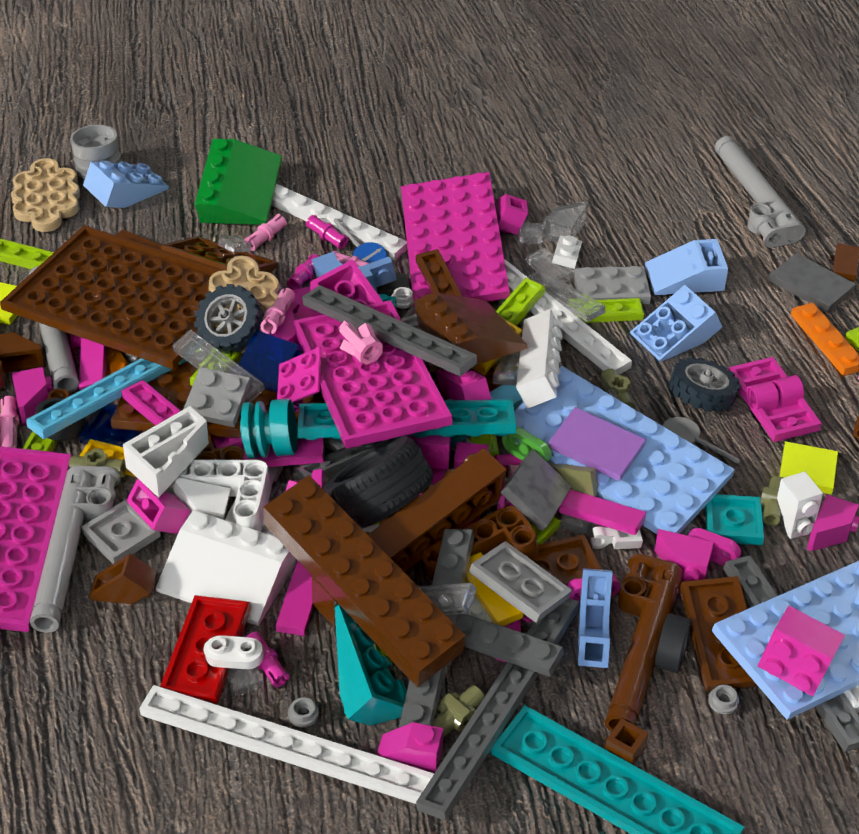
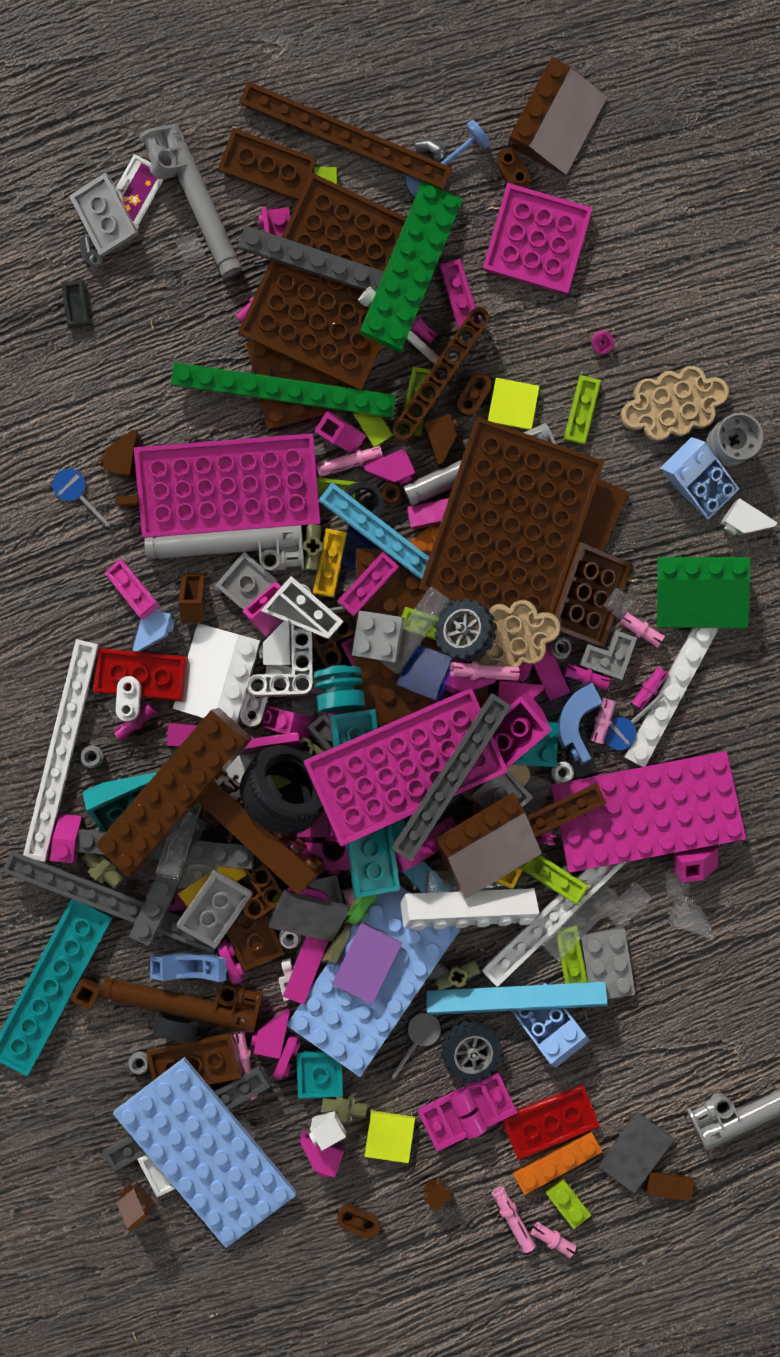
camera: 85 degrees right, 45 degrees up
(91, 637) = (132, 589): none -> dark pink tile
(147, 627) = (153, 629): none -> light blue slope
(174, 159) = (745, 519): none -> white slope
(288, 254) = (612, 661): none -> light grey plate
(300, 377) = (394, 706): dark pink hinge -> none
(361, 343) = (427, 754): bright pink rock -> none
(564, 529) = (289, 943): none -> white plate
(567, 251) = (646, 921): white plate -> none
(645, 345) = (516, 998): none -> medium azure tile
(695, 264) = (630, 1036): light blue slope -> none
(784, 339) = (551, 1121): none -> red tile
(800, 650) = (144, 1126): dark pink brick -> none

